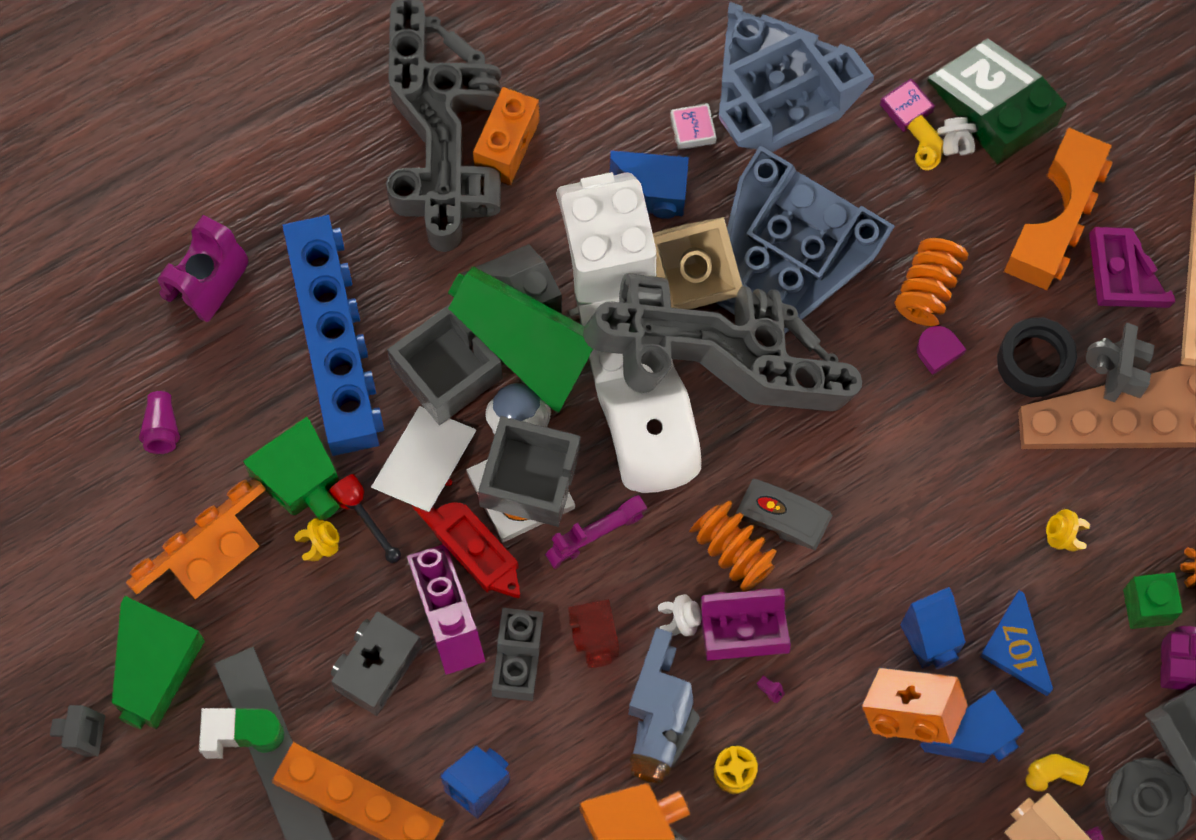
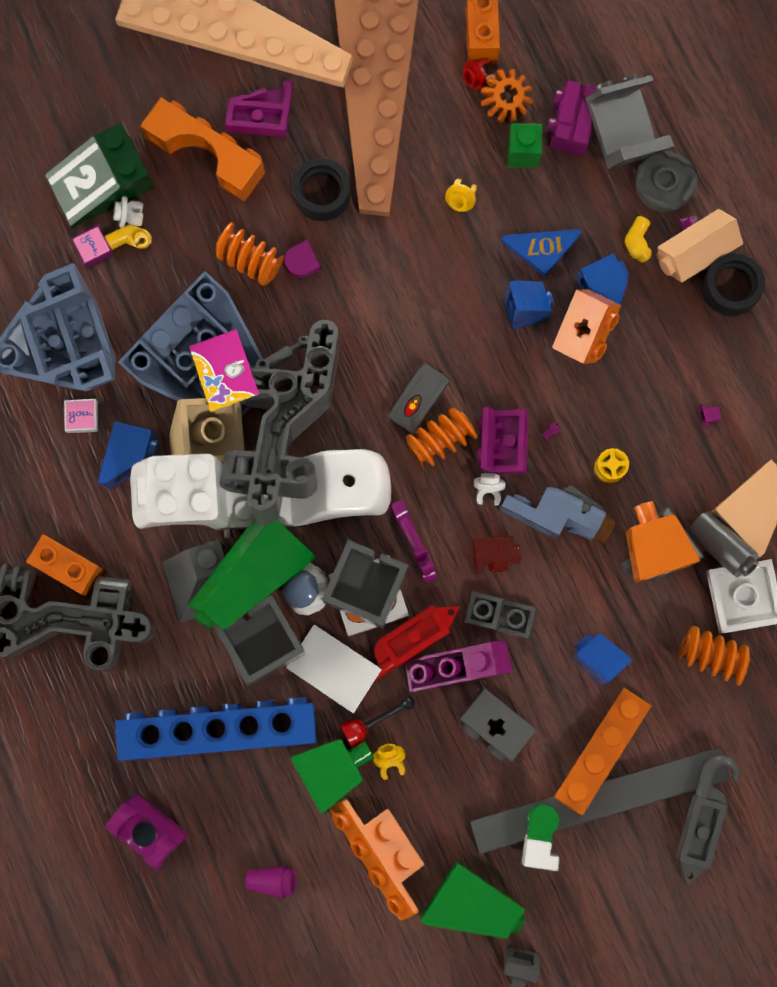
camera: 80 degrees left, 10 degrees up
(772, 267) = (223, 370): none -> sticker
(1118, 362) = (337, 130): dark grey hips -> none

